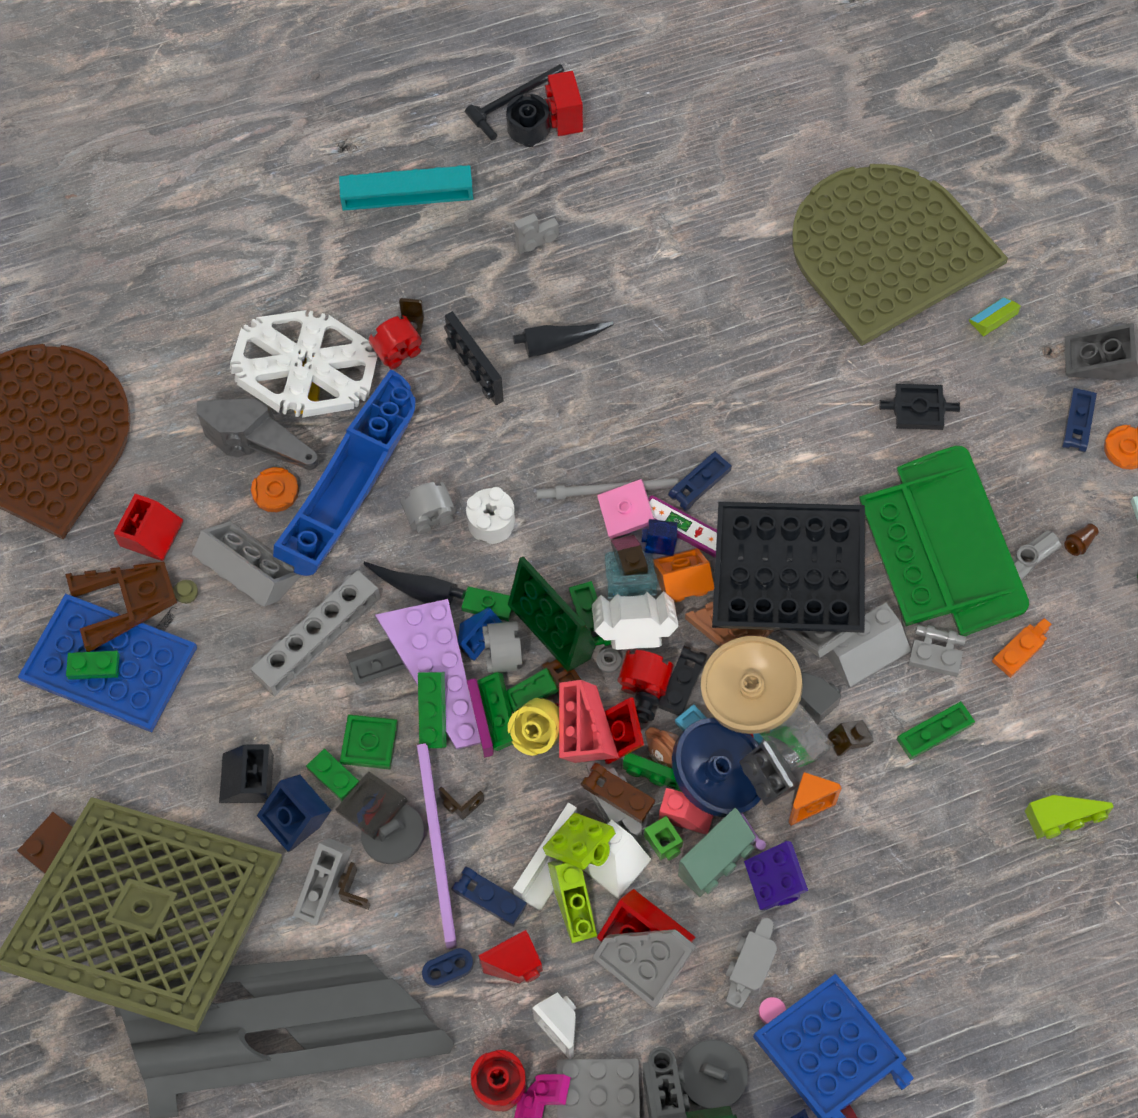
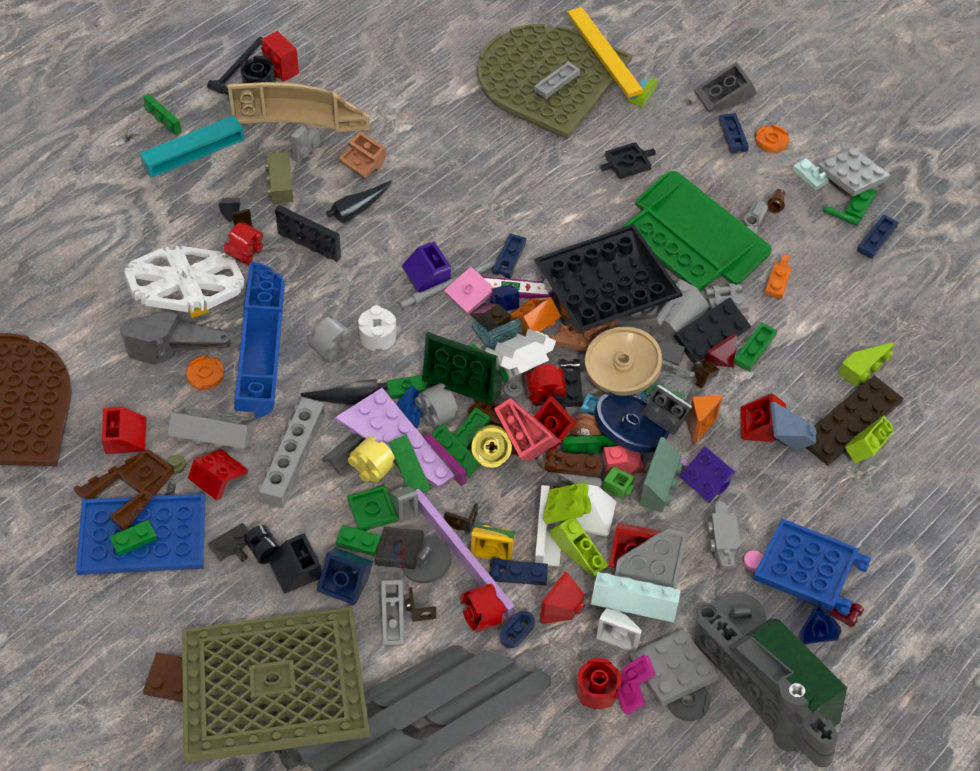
camera: 30 degrees left, 10 degrees down
(196, 716) = (230, 543): none -> clear smoke plate
(222, 620) = (214, 471): none -> red bracket
(223, 732) = (261, 543): none -> black wheel
(392, 132) = (162, 114): none -> green plate
(394, 683) = (372, 459): none -> light yellow brick
(403, 752) = (405, 502): none -> light grey slope
(407, 284) = (228, 206): none -> black tile
(417, 925) = (482, 608): none -> red brick
(476, 847) = (492, 542): none -> yellow slope
(484, 268) = (279, 177): none -> olive brick
(544, 177) = (294, 105): none -> tan slope
(590, 458) = (427, 267): none -> dark purple slope
(595, 276) = (363, 155): none -> nougat brick
(600, 994) = (635, 597): none -> light aqua slope
(886, 261) = (556, 80): none -> light grey plate
(889, 834) = (757, 419): none -> red slope
(890, 722) = (724, 352): none -> dark red slope
(892, 687) = (711, 330): none -> black plate
(911, 861) = (791, 428): none -> sand blue slope
(971, 243) = (605, 52): none -> yellow tile
(1002, 881) = (852, 417): none -> dark brown plate
(1007, 921) = (870, 440): none -> lime slope

